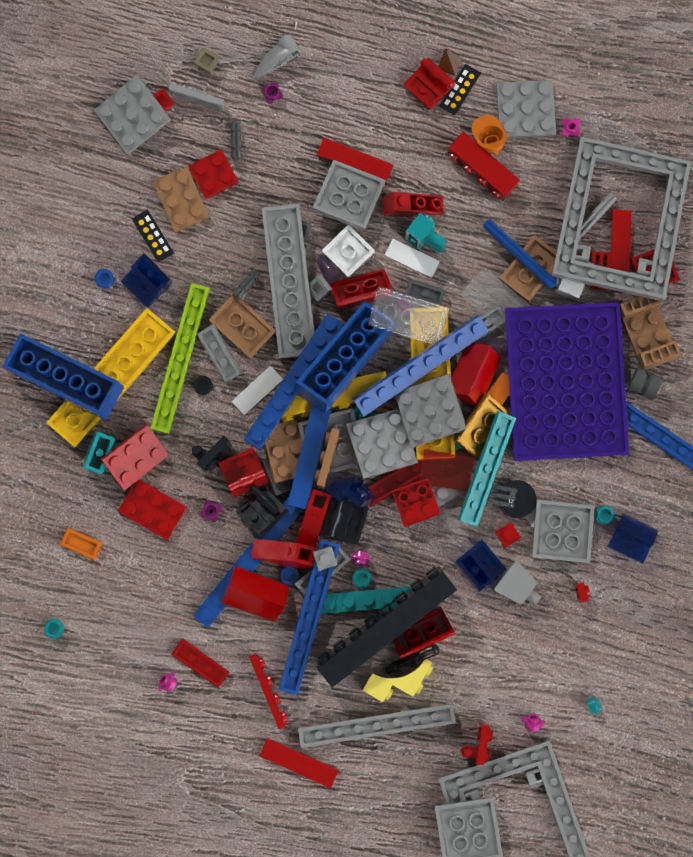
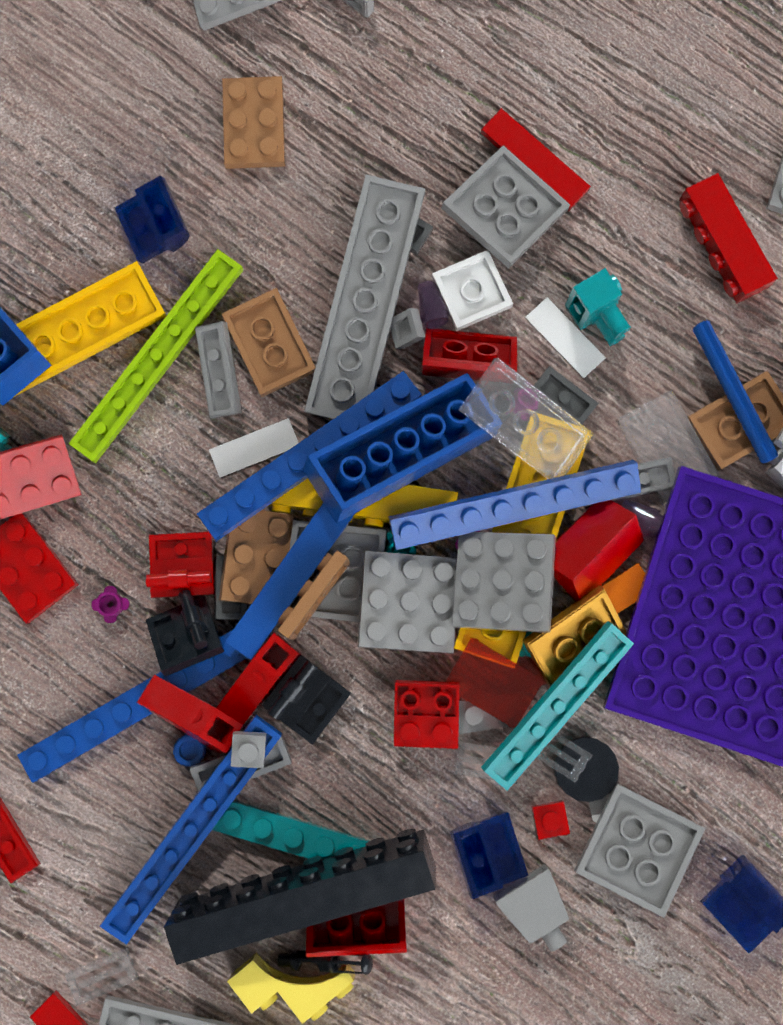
camera: 25 degrees right, 0 degrees up
(104, 278) = (94, 196): blue tile -> none
(152, 236) = (191, 161): black sticker -> none
(202, 385) = (175, 409): black tile -> none
(208, 459) = (135, 524): black plate -> none
(213, 174) = (316, 103): red plate -> none
(235, 128) = (368, 66): dark grey axle -> none
(246, 284) = (298, 282): dark grey axle -> none
(255, 594) = (124, 760): red slope -> none
(272, 88) = (452, 8): magenta plate -> none
(272, 698) = (82, 935): red plate -> none
(351, 489) = (334, 659): clear blue brick -> none
(360, 558) = (307, 768): dark pink plate -> none
(361, 578) = (298, 799): teal plate -> none
(382, 488) = (411, 665): red tile -> none
(411, 204) = (590, 253): red slope -> none
(429, 83) = (691, 86): red plate -> none
(449, 62) = (733, 67): reddish brown slope -> none
(457, 95) = (733, 114): black sticker -> none
(489, 133) = (756, 192): orange piece -> none
(582, 592) = (634, 959): red plate -> none
(604, 515) = (714, 848): teal plate -> none

